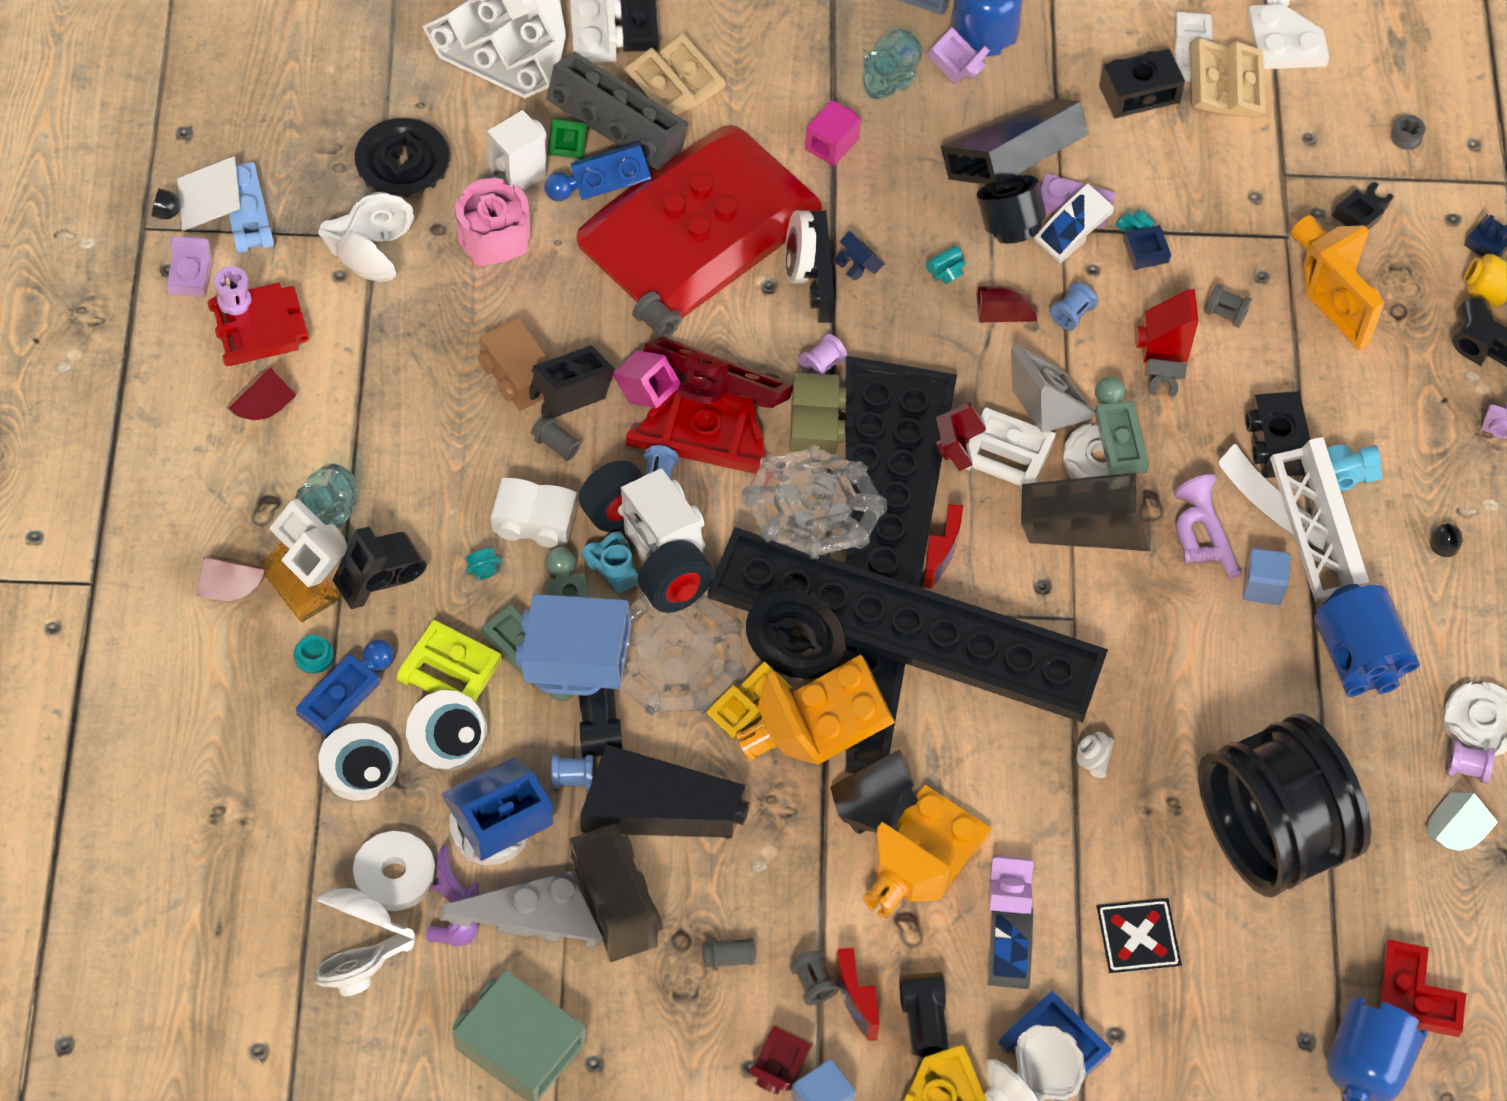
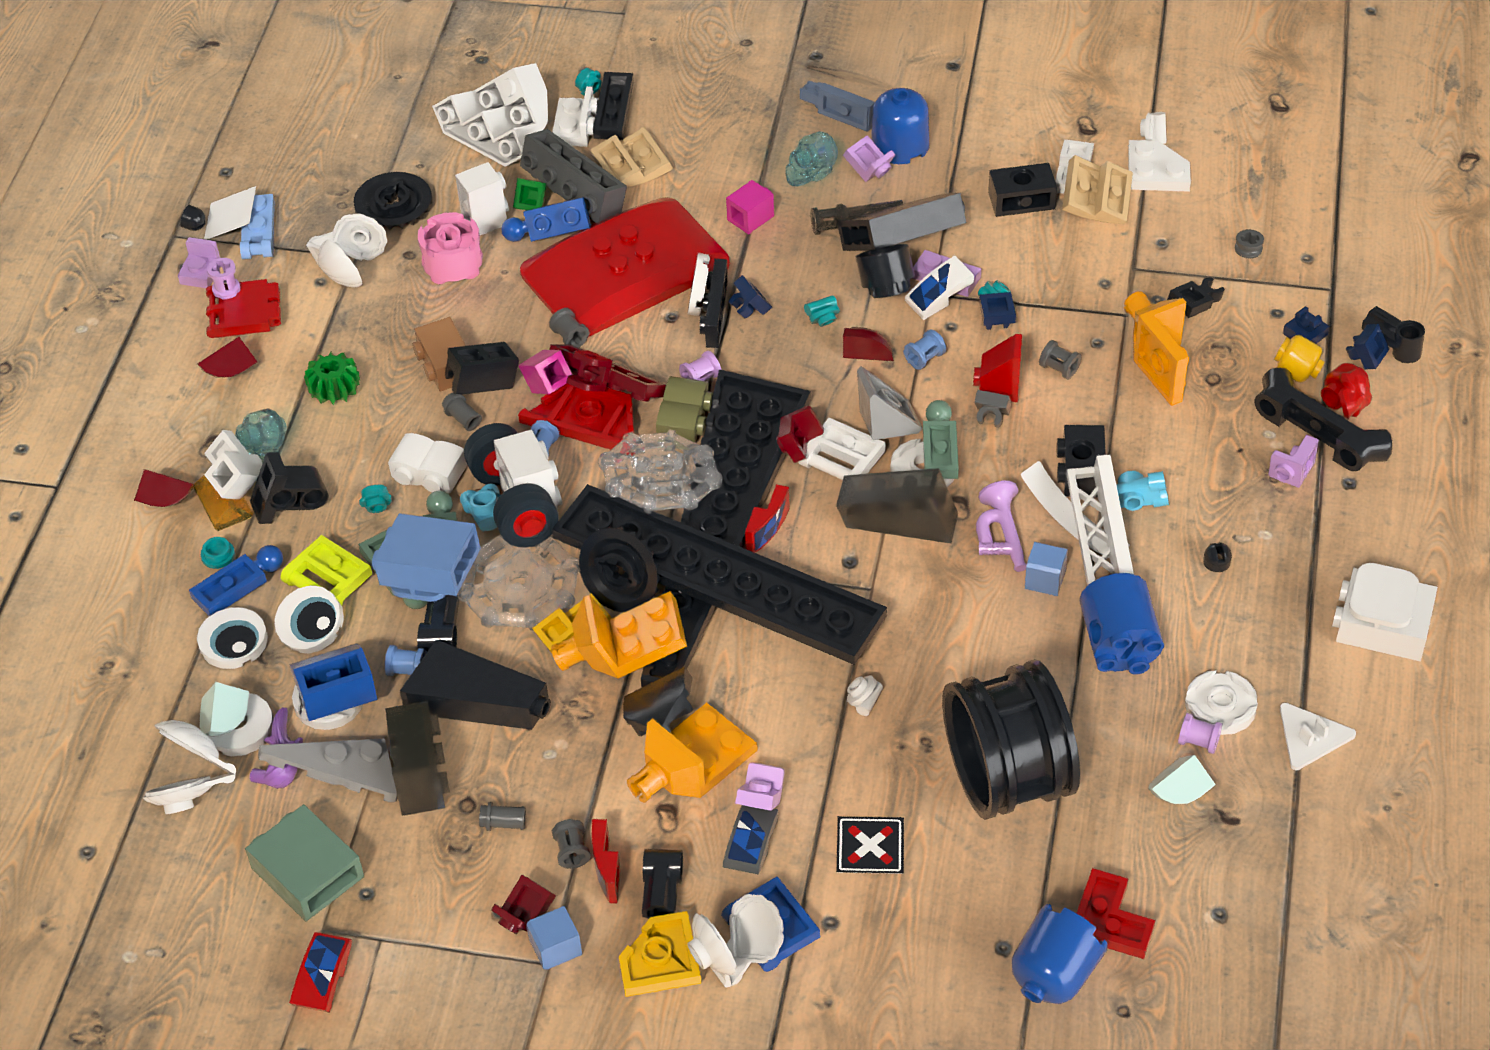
camera: 15 degrees right, 10 degrees down
(378, 861) = (222, 709): none -> light aqua brick
(392, 409) = (332, 377): none -> green gear
(930, 139) = (842, 212): none -> clear smoke pin

